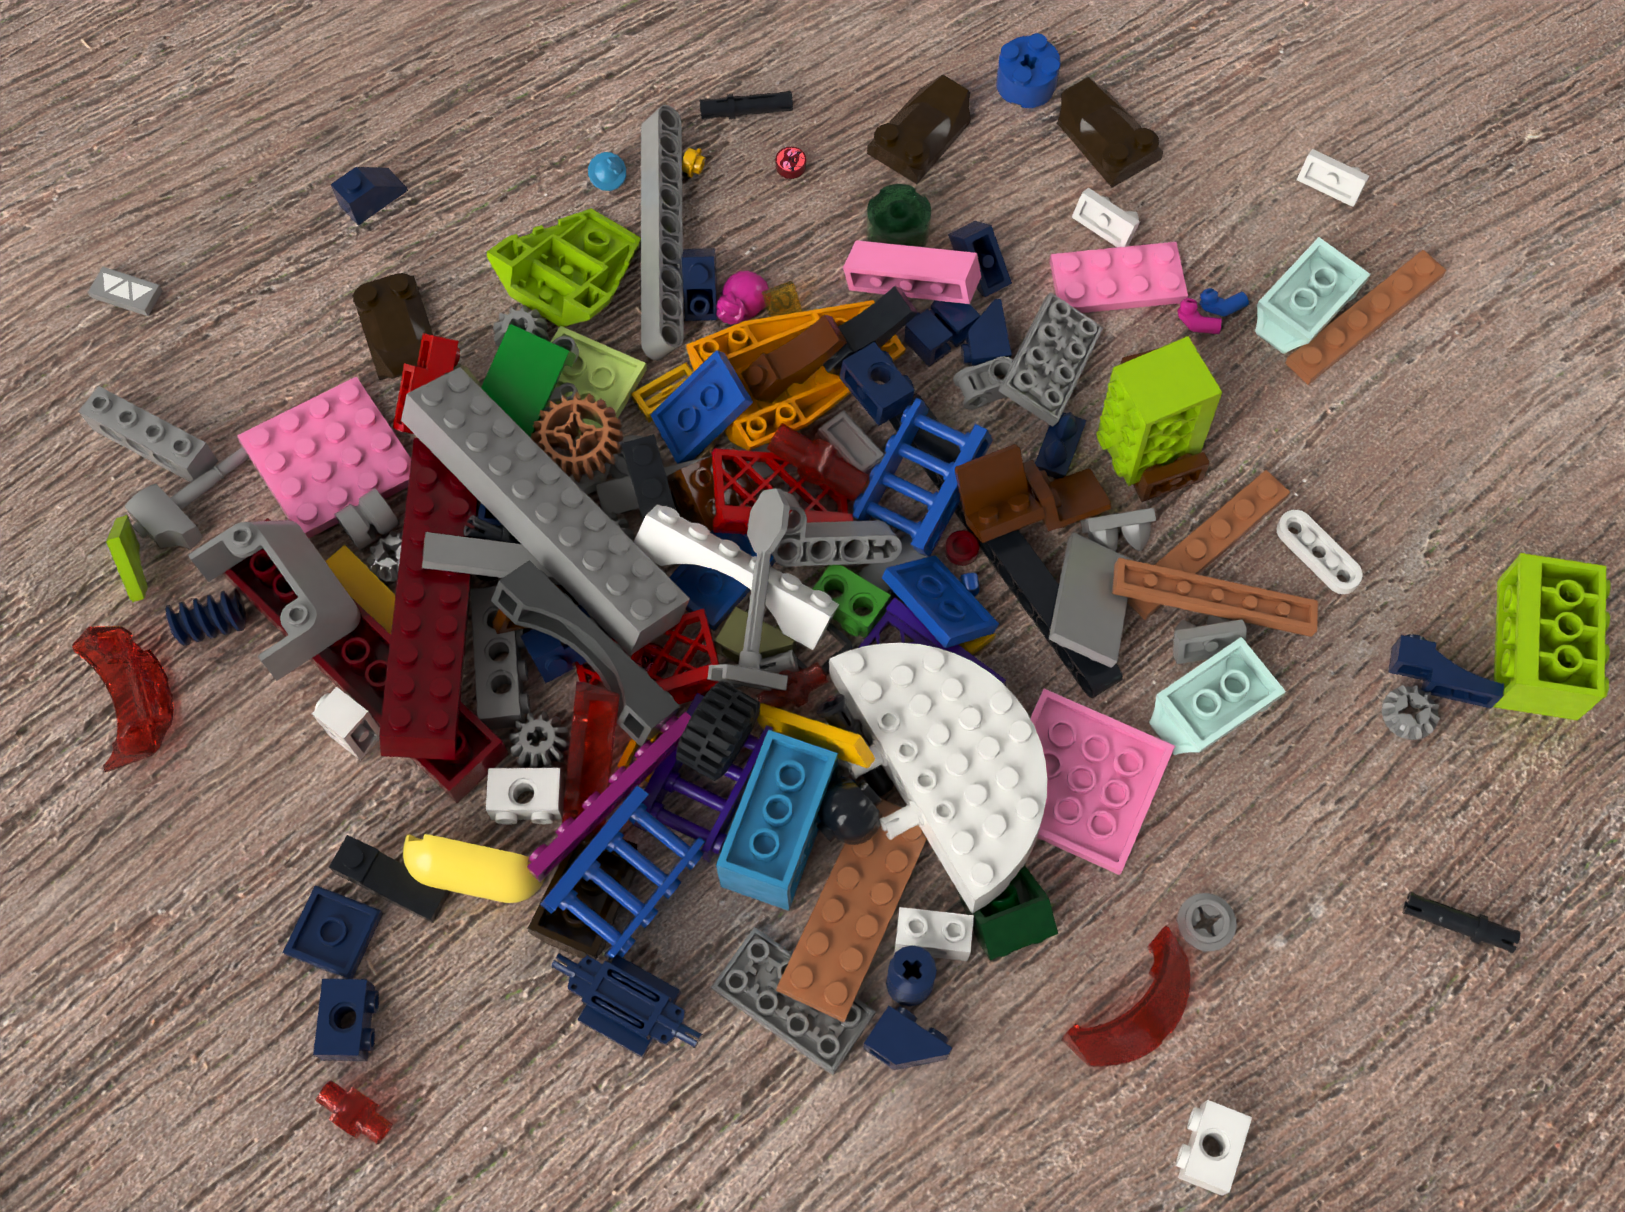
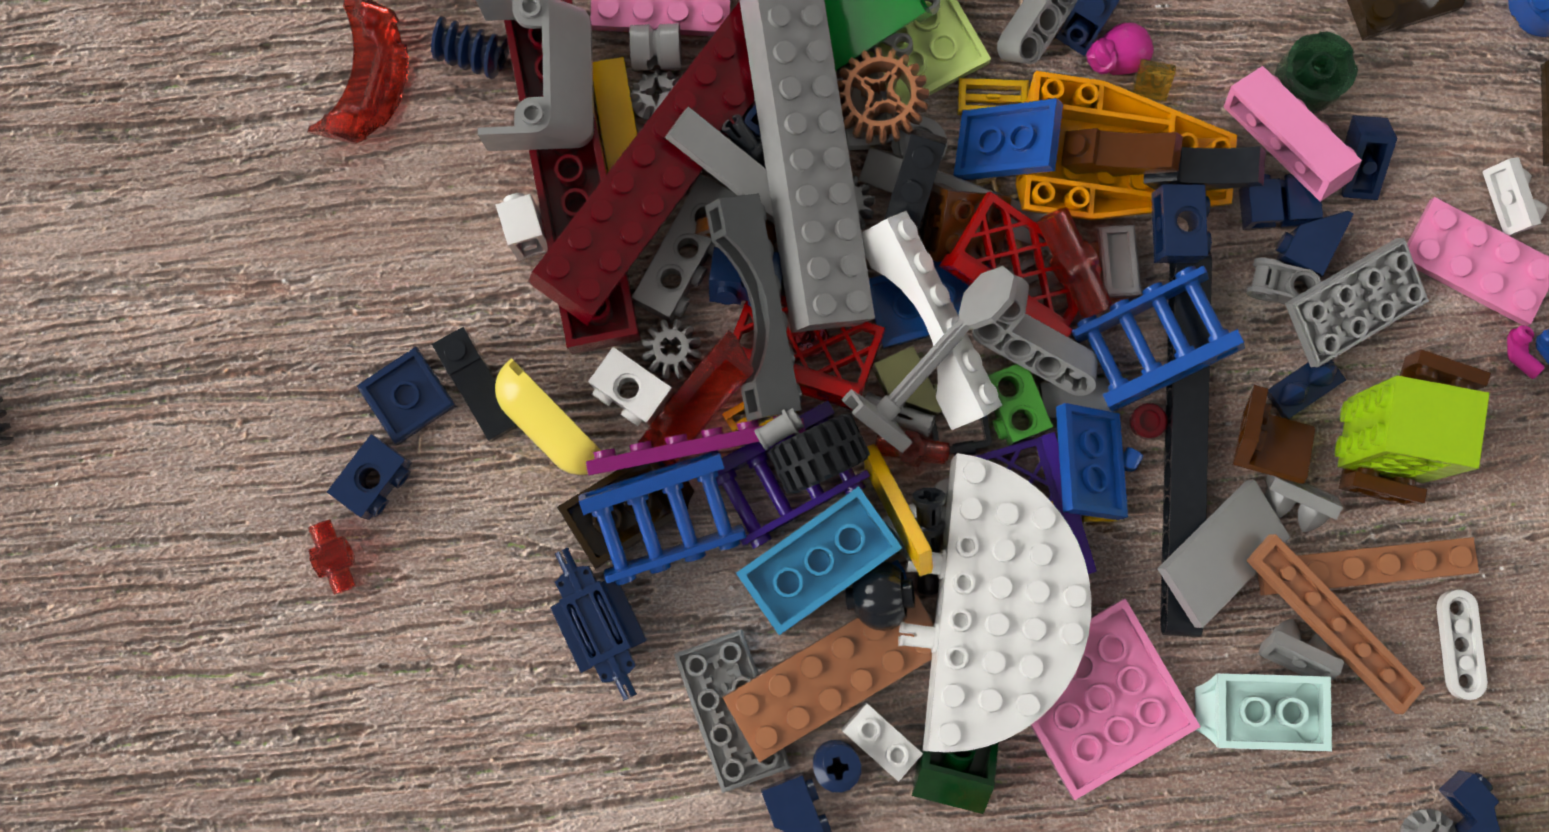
camera: 35 degrees right, 15 degrees up
(671, 729) = (779, 428): none -> light grey pin
(997, 494) = (1209, 406): reddish brown bracket -> none

